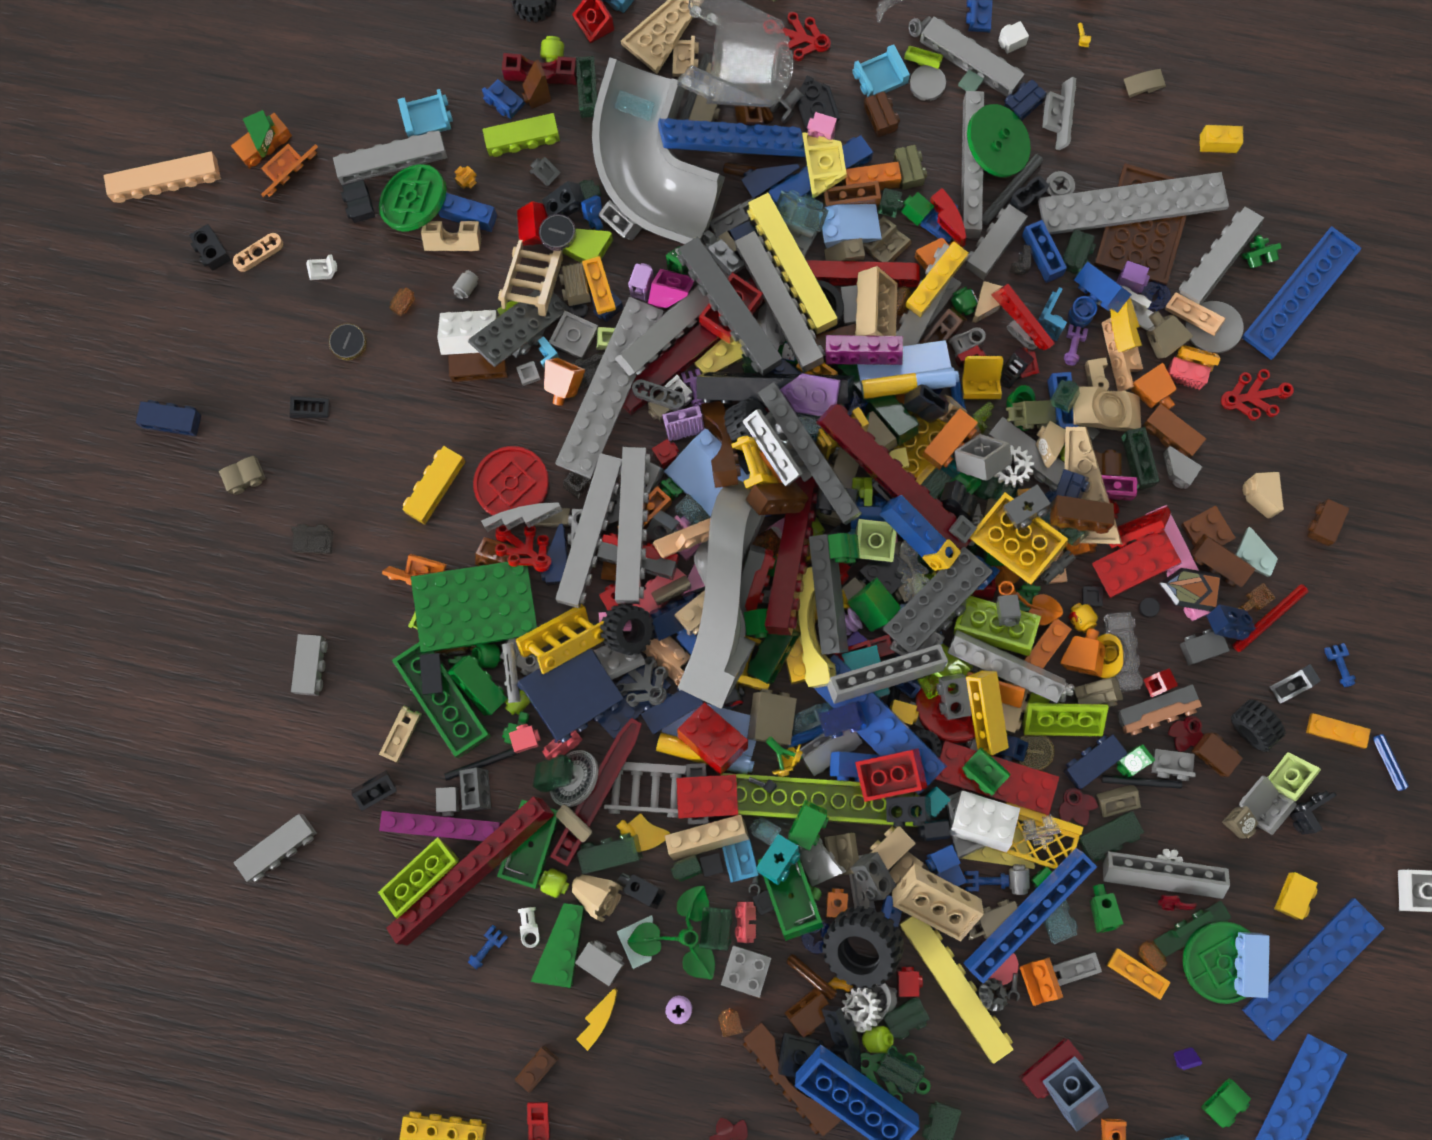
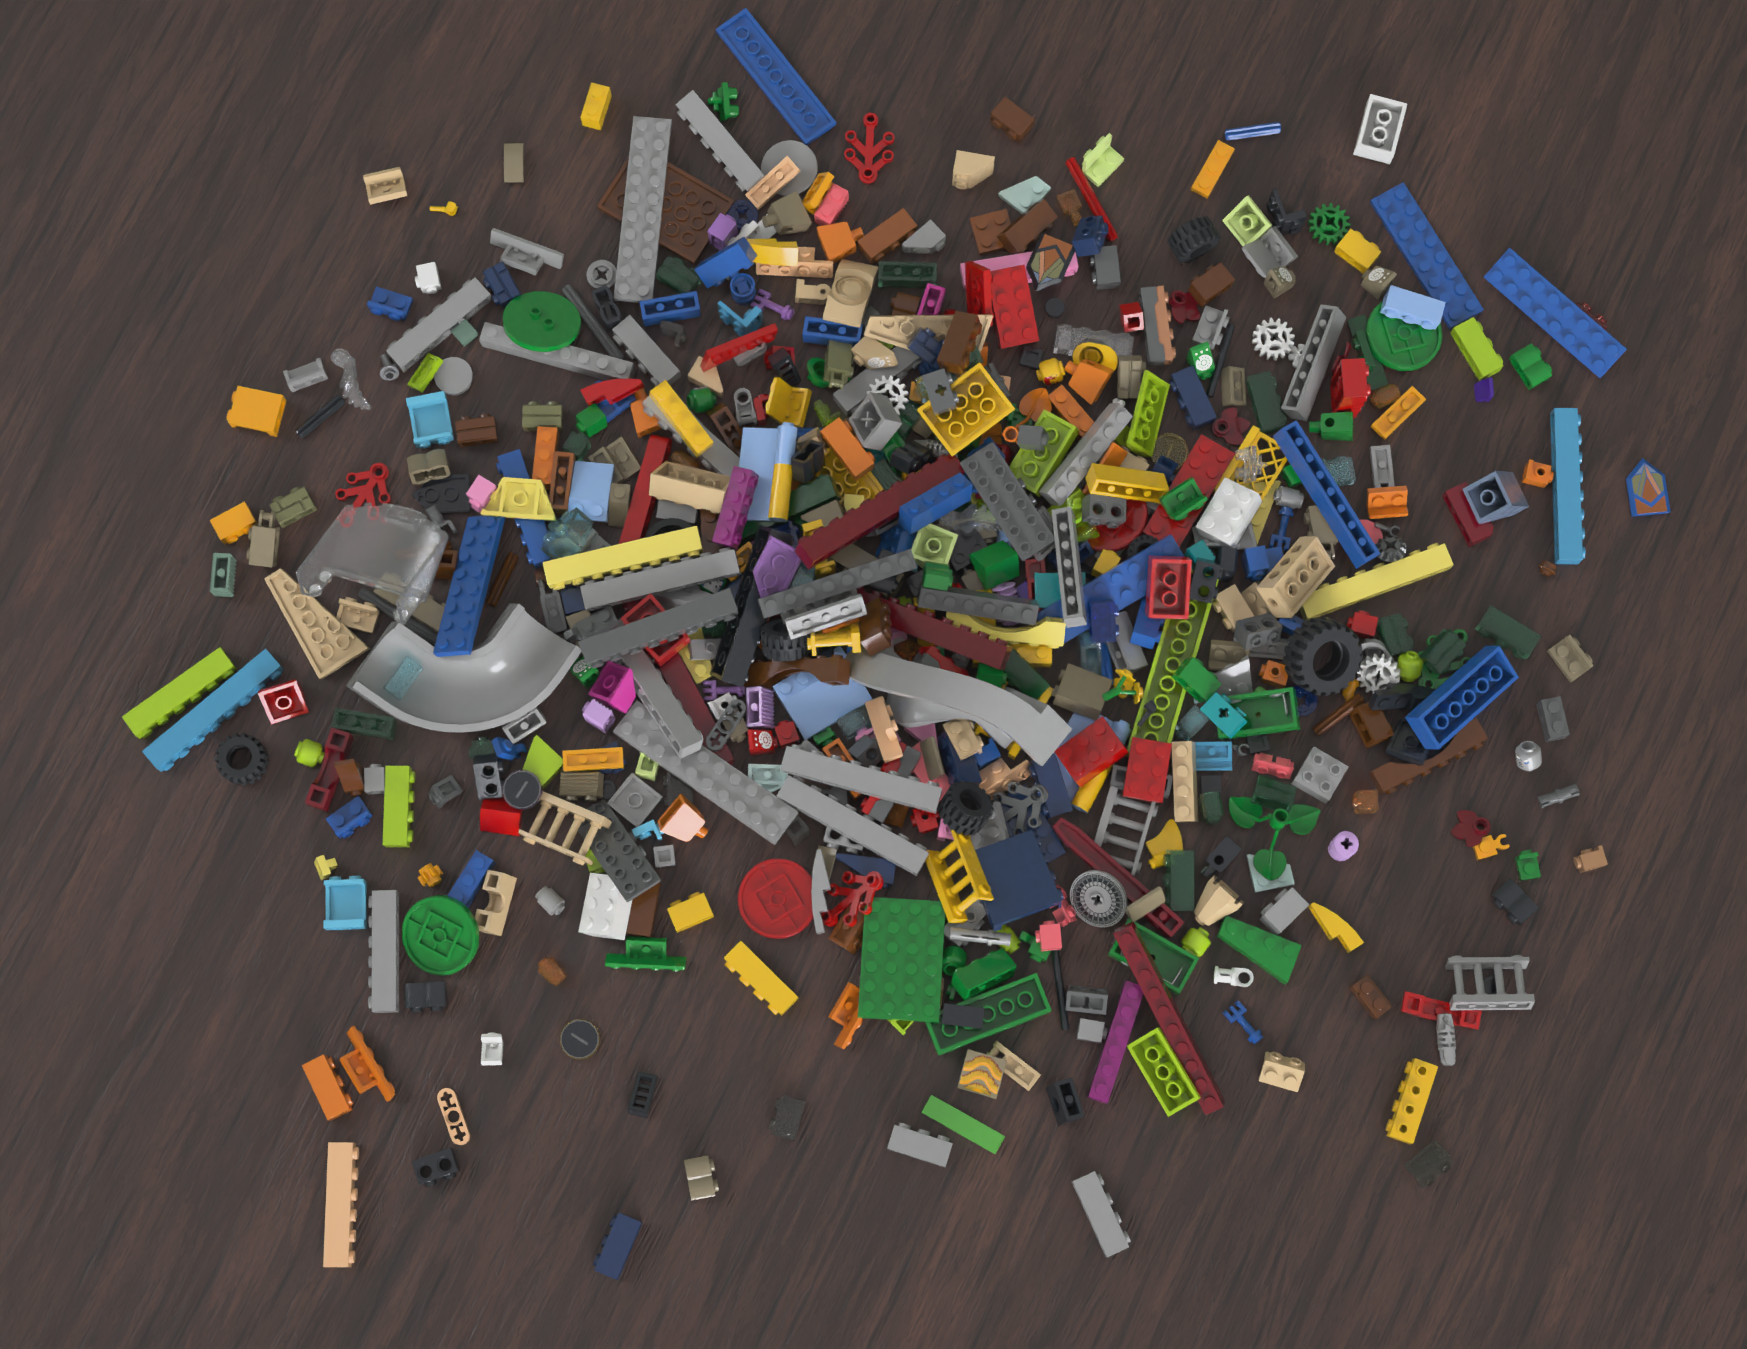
camera: 80 degrees left, 0 degrees up
(260, 130) = (322, 1081): green slope -> none
(335, 700) = (963, 1124): none -> bright green slope
(387, 707) = (982, 1074): none -> slope
(433, 378) = (646, 953): none -> green bracket
(447, 995) = (1282, 1071): none -> tan bracket
(454, 89) = (325, 866): none -> light yellow tile
(481, 408) = (690, 912): none -> yellow brick
(540, 107) = (374, 779): none -> light grey brick
(553, 773) = (1089, 917): clear green brick -> none
(618, 439) = (767, 776): none -> light aqua wing
(651, 430) = (761, 742): none -> red slope
(727, 359) = (703, 649): none -> light grey plate
(764, 178) = (518, 563): dark blue slope -> none
(835, 79) = (428, 466): none -> dark tan brick
(864, 486) = (879, 541): lime bracket -> none
(939, 560) = (969, 487): yellow bracket -> none
(962, 529) = (943, 459): dark grey plate -> none
(1065, 395) = (831, 326): clear green brick -> none
(1148, 914) = (1349, 386): none -> red brick
(1182, 821) = (1278, 344): none -> white gear
(1229, 1042) = (1477, 349): none -> lime brick
(1270, 923) = (1377, 280): none -> dark tan slope
(1295, 683) = (1160, 194): dark grey slope -> none
(1312, 617) = (1101, 161): none -> yellowish green bracket
(1321, 853) = (1328, 232): none -> green gear
(1338, 657) = (1141, 148): blue hinge -> none

